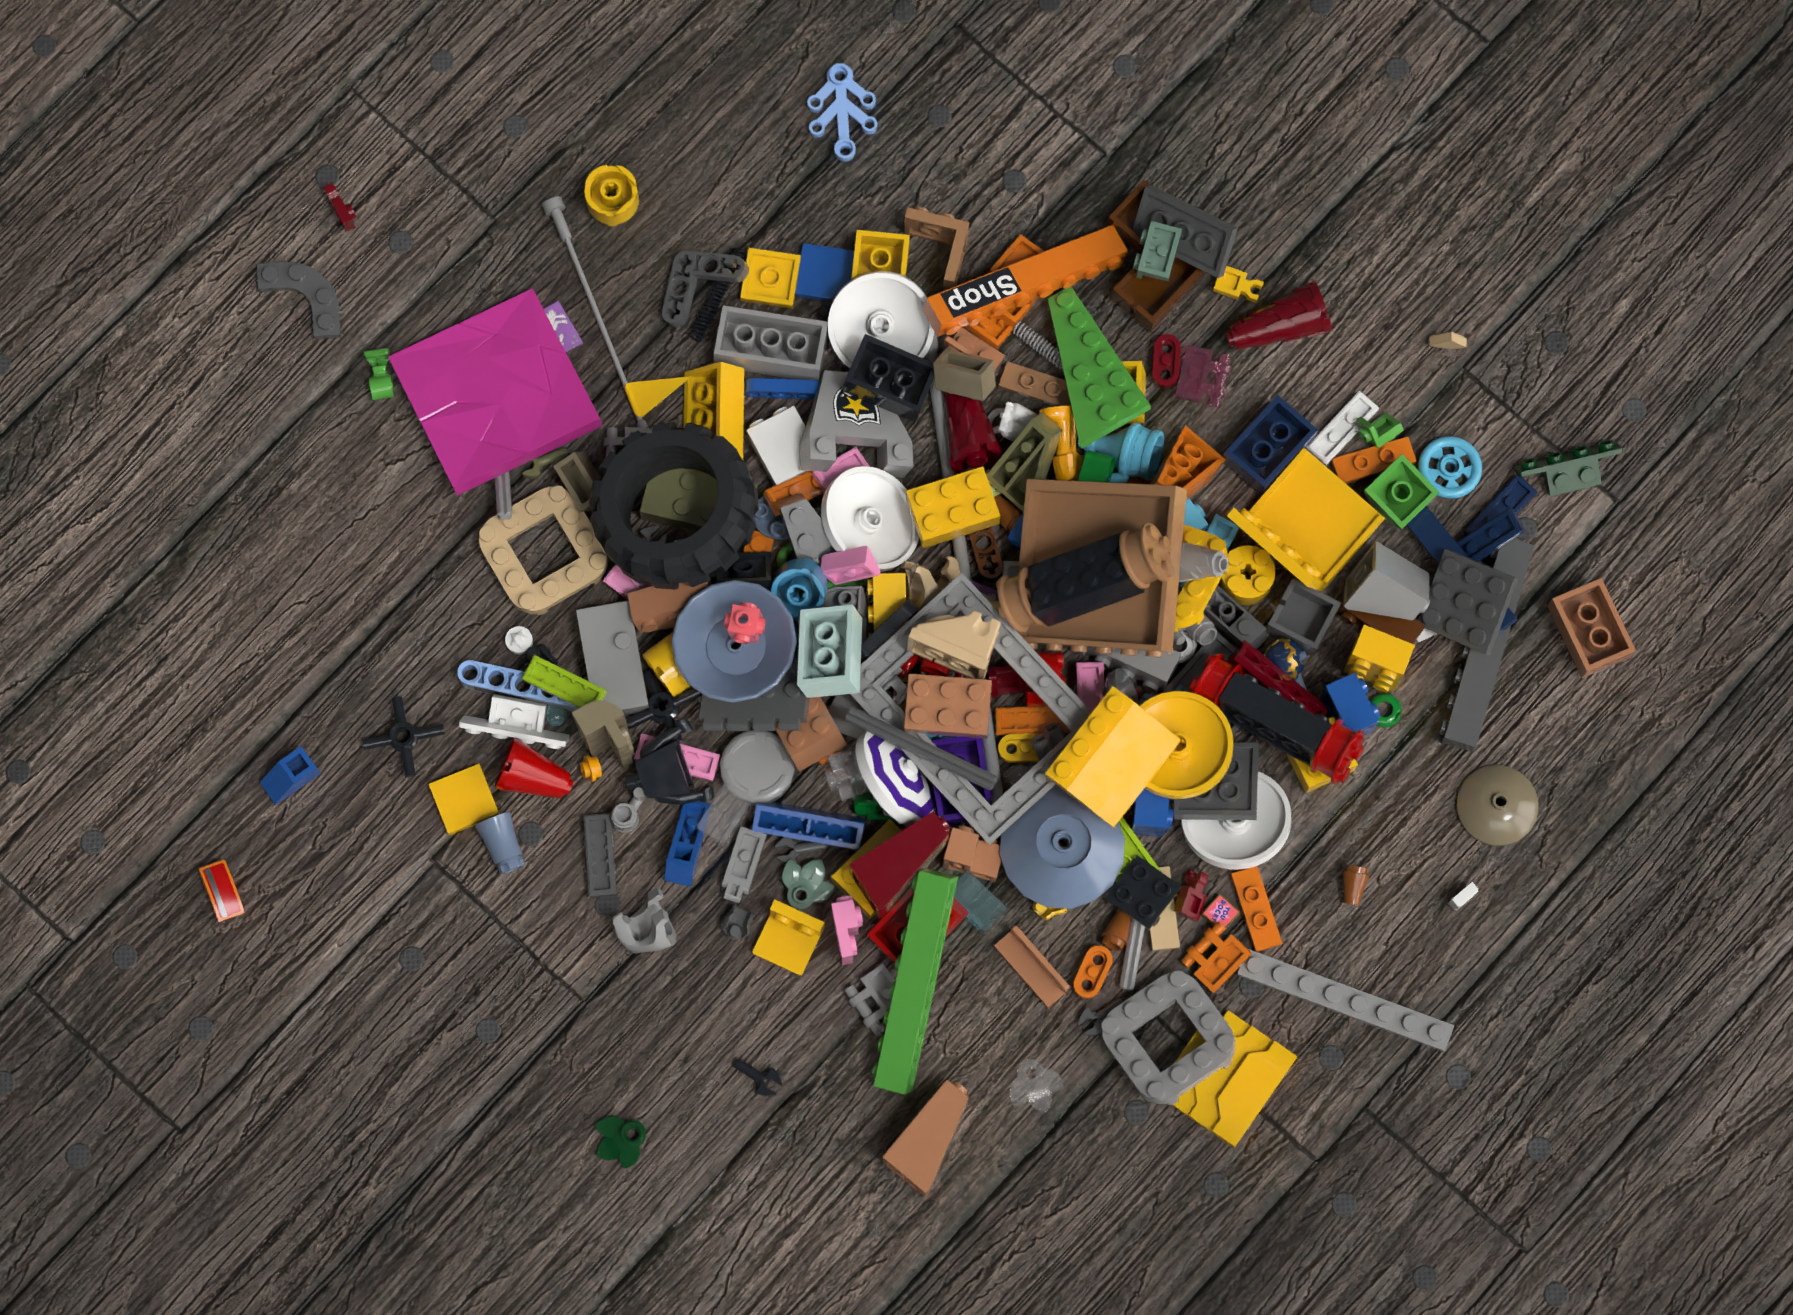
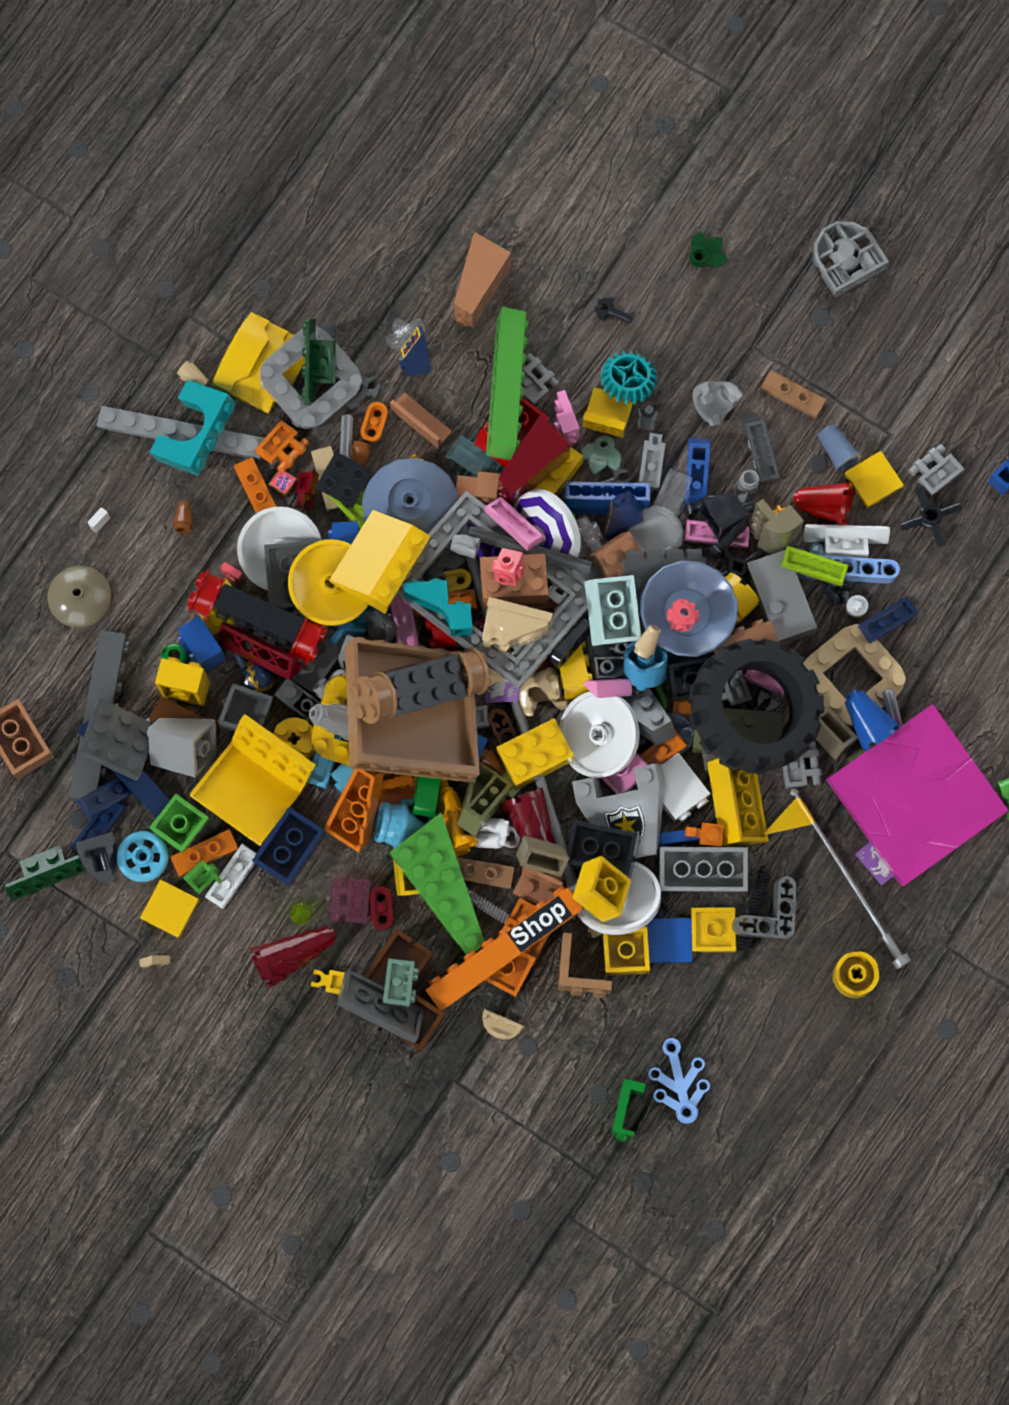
camera: 175 degrees right, 0 degrees up
(377, 791) = (941, 474): none -> light grey plate
(434, 1112) = (844, 262): none -> light grey connector
(484, 611) = (888, 620): none -> dark blue tile
(534, 479) = (869, 719): none -> blue cone
(545, 927) = (793, 394): none -> medium nougat plate
(757, 379) = (709, 834): none -> orange plate
(767, 956) = (620, 369): none -> teal gear
(793, 792) = (622, 514): none -> dark blue slope
(794, 600) = (647, 642): none -> tan cone
(899, 319) = (602, 889): none -> yellow brick
(900, 104) = (628, 1087): none -> green panel
(935, 783) = (514, 523): none -> bright pink plate
(954, 713) = (508, 567): none -> coral brick
(1001, 763) = (465, 545): none -> light grey piece
(1027, 1049) = (415, 354): none -> dark blue slope
(1042, 205) = (500, 1026): none -> tan tile
(1049, 699) = (434, 596): none -> teal arch
(1155, 1048) = (319, 361): none -> dark green bracket
(1265, 372) = (300, 913): none -> clear neon green piece
(1297, 1013) = (193, 453): none -> teal arch
(1300, 801) = (232, 573): none -> coral tile
(1321, 1073) = (190, 372): none -> tan cone
(1423, 401) = (169, 909): none -> yellow tile
(1504, 472) = (98, 856): none -> black shield

